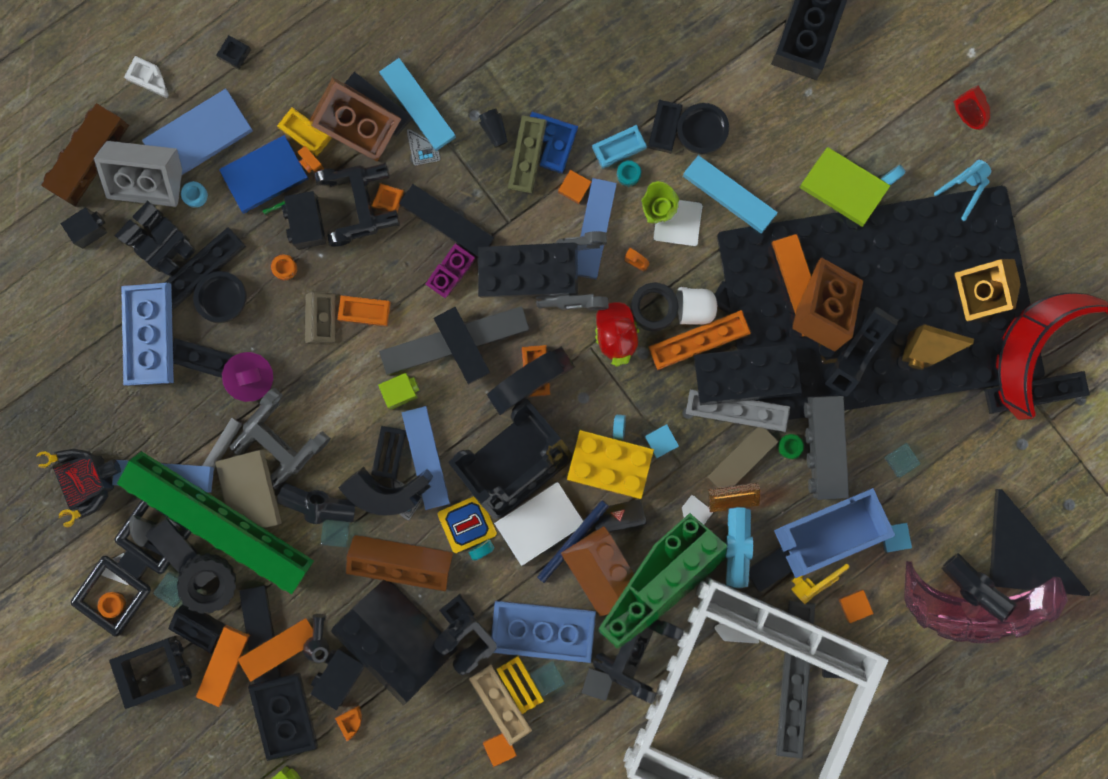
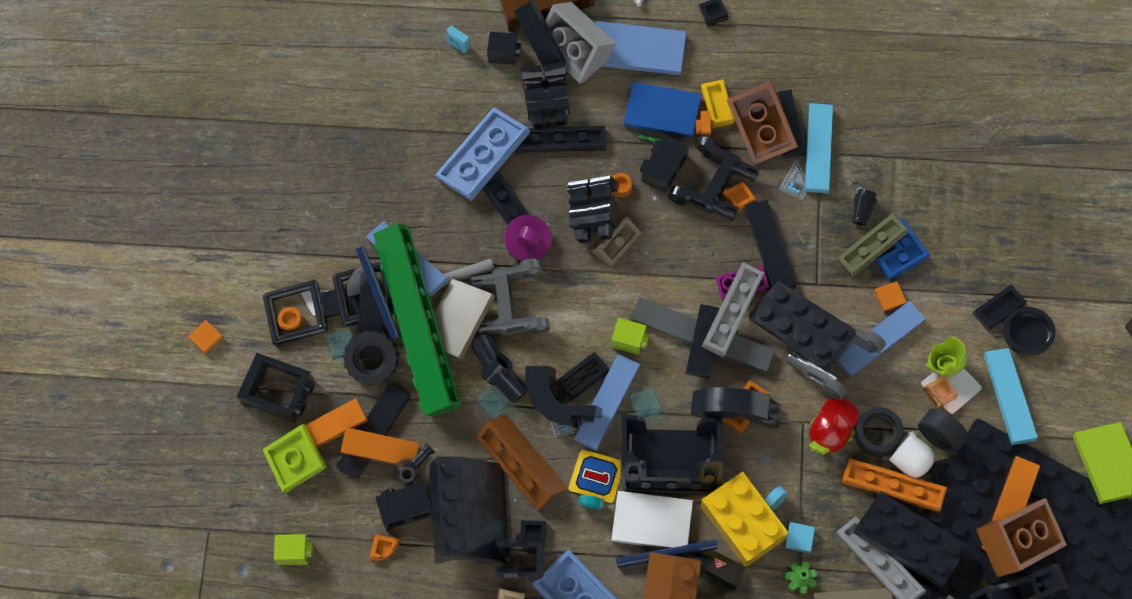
camera: 45 degrees right, 15 degrees down
(39, 250) = (458, 39): none -> medium azure tile
(54, 678) = (205, 337): none -> orange tile
(83, 480) = (349, 215): black torso -> none
(104, 192) = (538, 34): none -> black tile
(164, 529) = (377, 292): none -> dark blue bar
(194, 194) = (599, 85): medium azure tile -> none
(197, 628) = (334, 384): black slope -> none
(217, 715) = (294, 458): none -> lime tile
(219, 297) = (555, 168): black piece -> none
(283, 716) = (339, 500): black tile -> none
(284, 310) = (593, 213): none -> black hips
(364, 311) = (652, 261): orange tile -> none
(456, 434) = (645, 403): none -> clear light blue tile
(463, 301) = (732, 309): none -> light grey tile
(619, 146) = (950, 295): medium azure tile -> none
(629, 173) = (941, 320): teal tile -> none
(636, 259) = (894, 386): orange tile -> none
(675, 235) = (940, 392): none -> clear orange tile
(682, 471) = (798, 580): none -> bright green plant
(703, 267) = (943, 430): none -> black tyre

